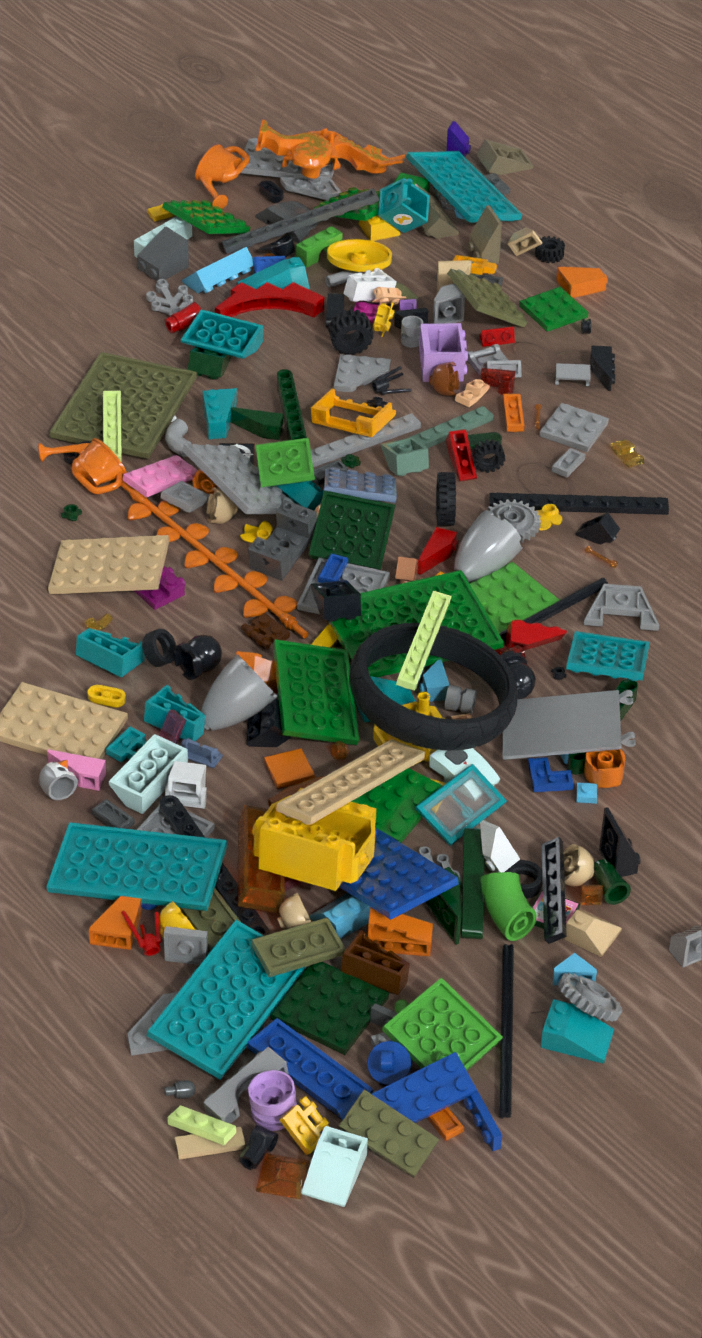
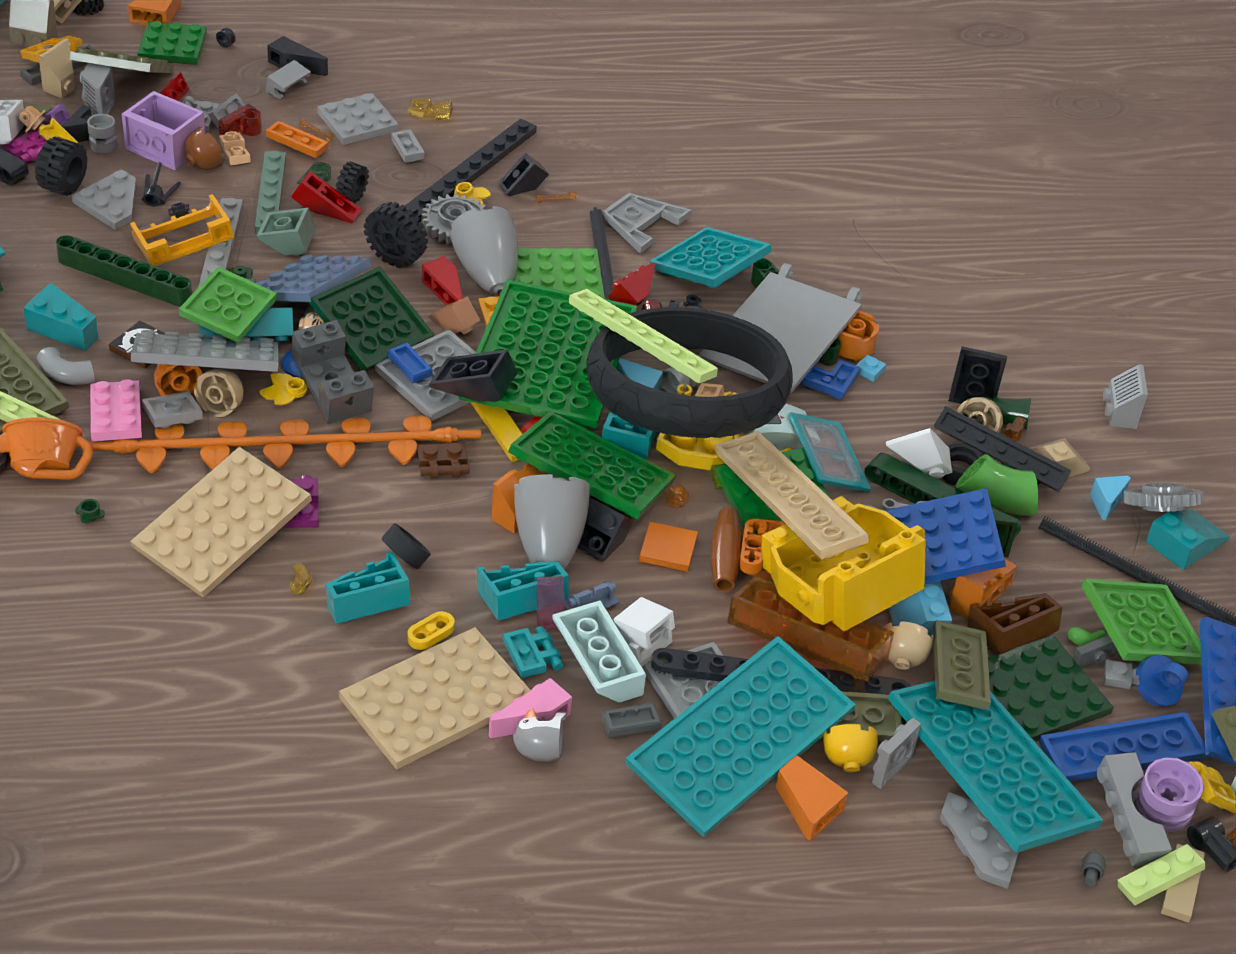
camera: 60 degrees left, 0 degrees up
(148, 942) = (861, 784): red plant -> none
(197, 656) = (447, 525): black tile -> none
(261, 423) = (116, 298): dark green slope -> none

